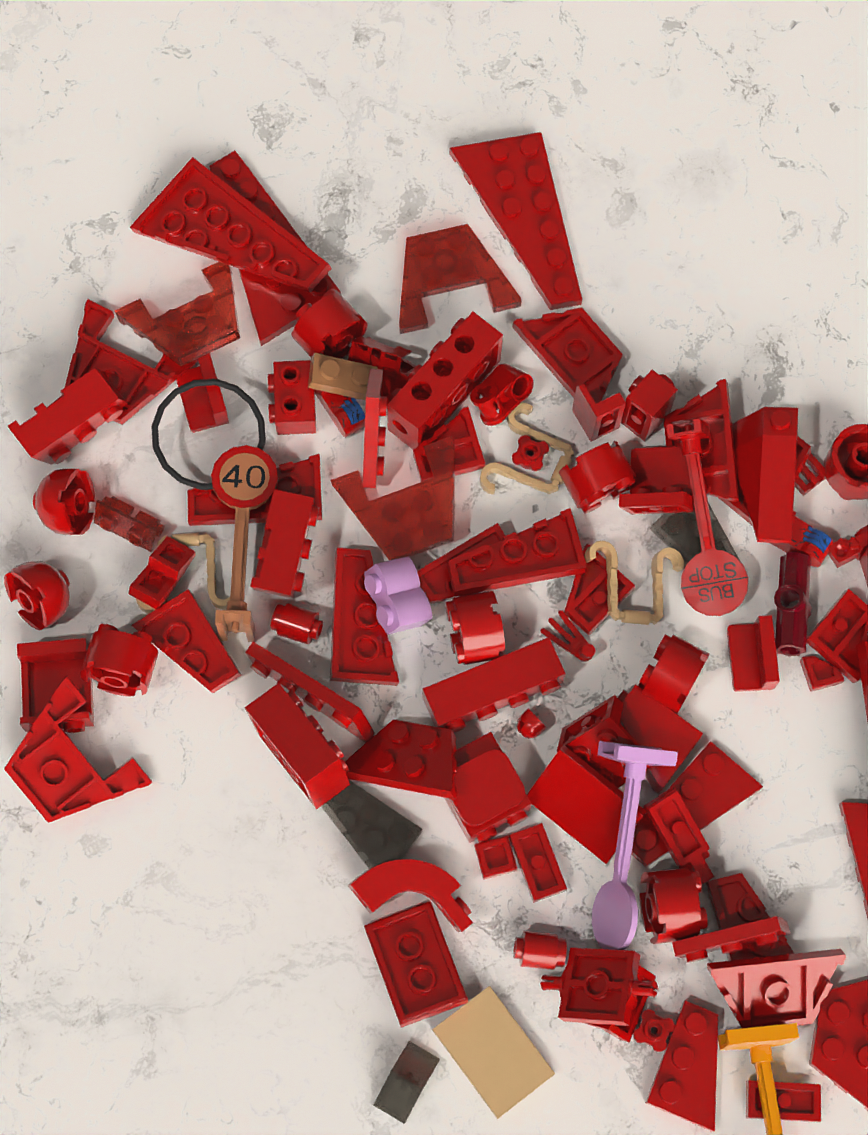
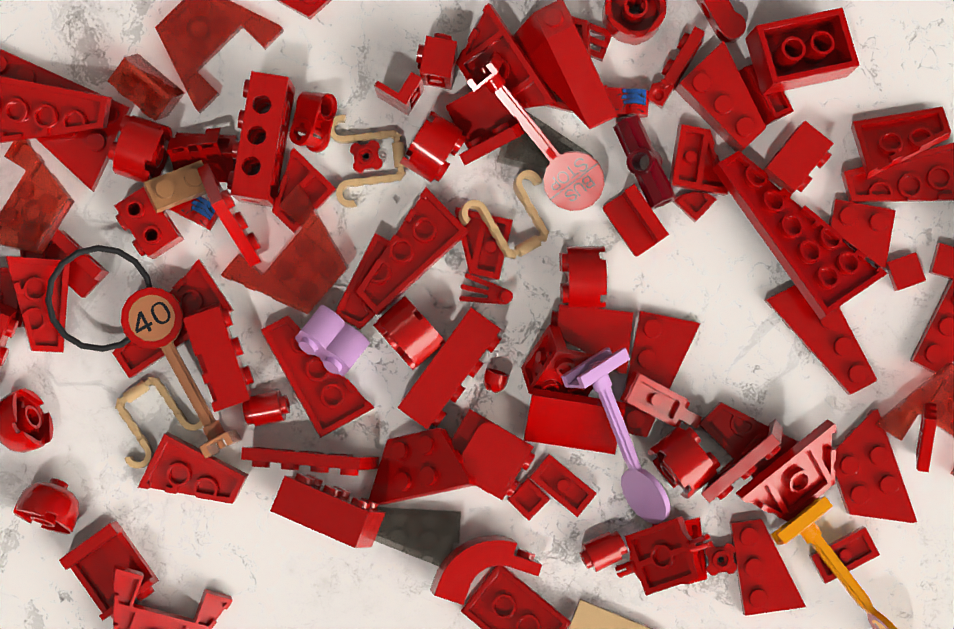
camera: 30 degrees left, 15 degrees up
(116, 517) = (67, 407): clear red hinge -> none
(120, 661) = (147, 524): red brick -> none
(153, 385) = (30, 284): none -> red wing
(162, 573) = (135, 432): red slope -> none
(366, 279) = (146, 87): none -> clear red brick
(572, 349) = (351, 48): red wing -> none

